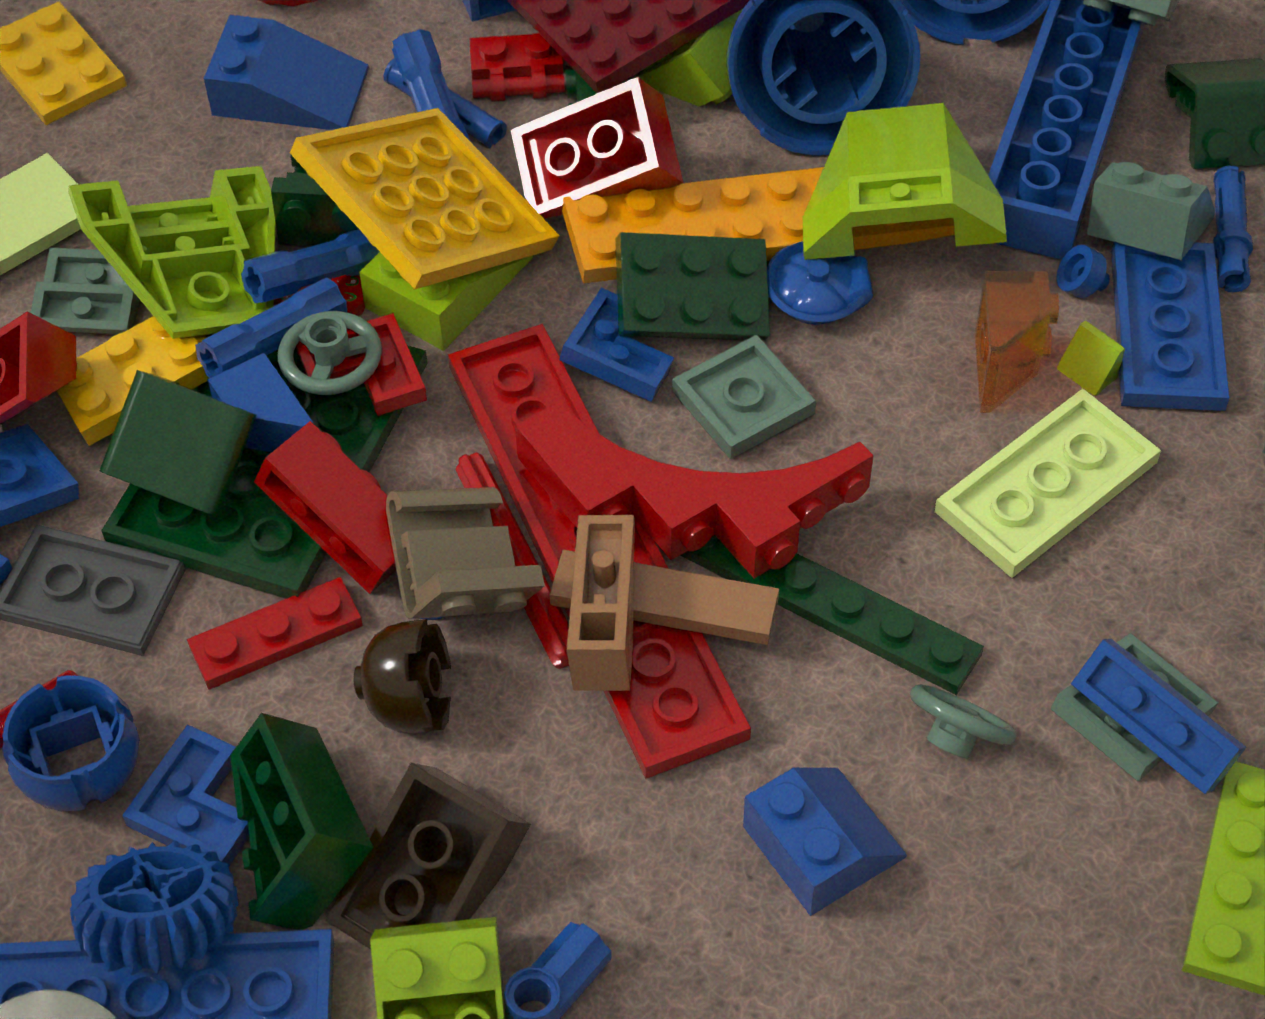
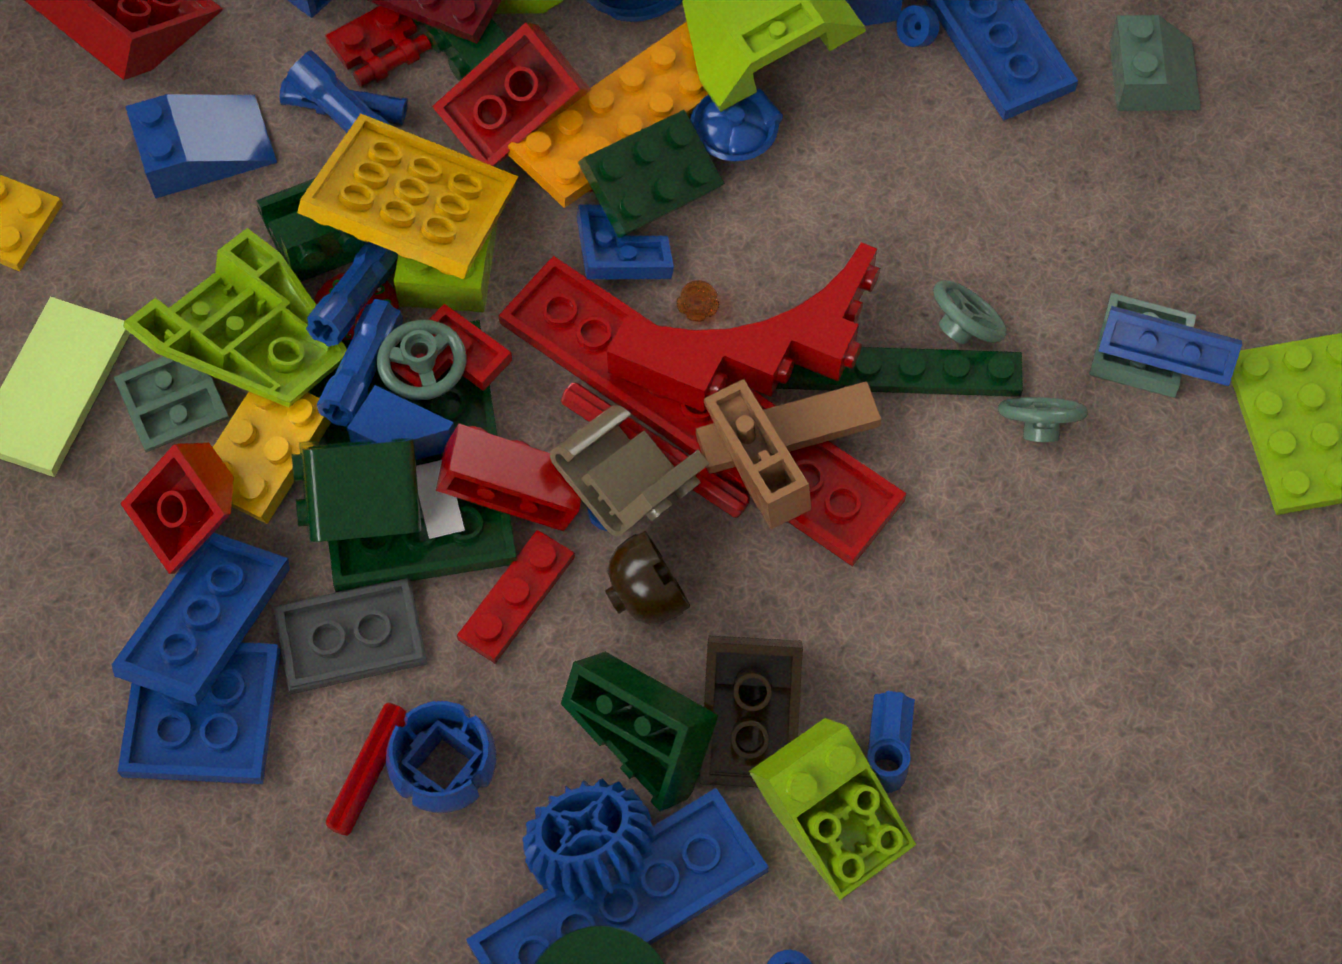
camera: 30 degrees left, 10 degrees up
(180, 800) = (541, 761): blue plate -> none
(254, 508) = (439, 509): none -> white sticker
(663, 423) = (700, 291): none -> clear orange plate
(743, 396) = (737, 242): sand green plate -> none
(818, 834) = (997, 546): blue slope -> none
(939, 580) = (967, 314): none -> sand green piece
(1012, 332) = (903, 101): clear orange slope -> none
(1047, 482) = (990, 206): yellowish green plate -> none
(1091, 359) = (965, 94): lime slope -> none

